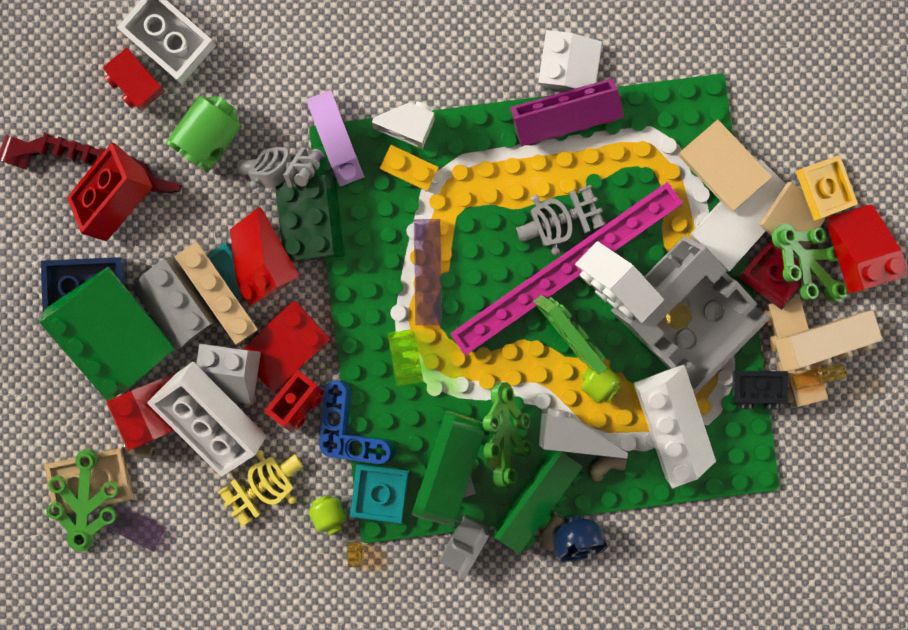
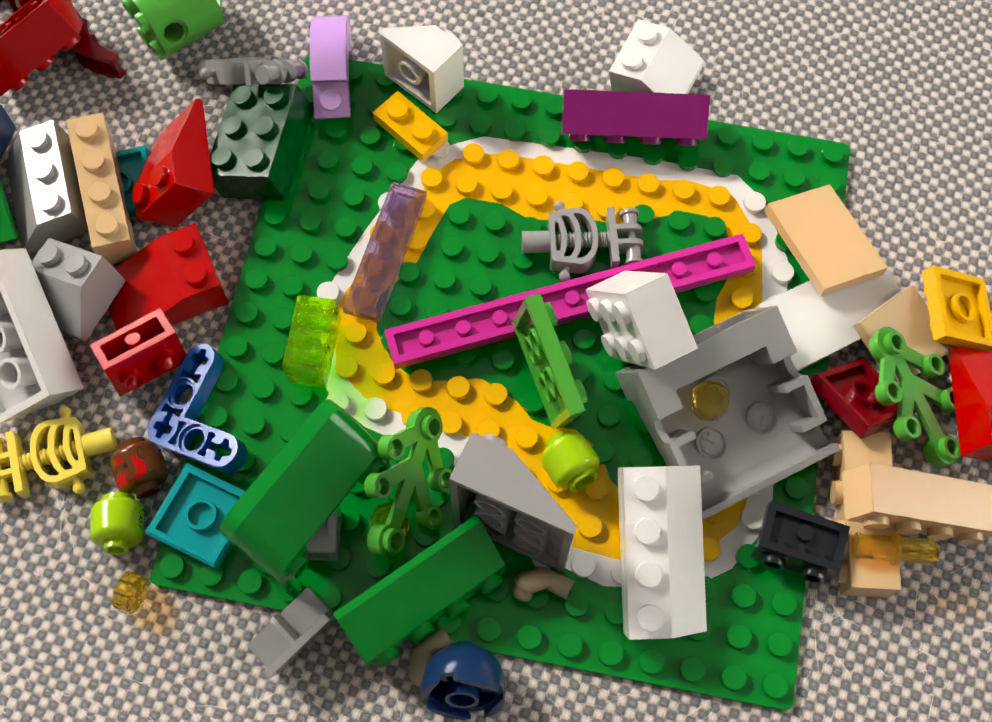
camera: 20 degrees right, 20 degrees down
(326, 476) = (138, 467): none -> reddish brown head

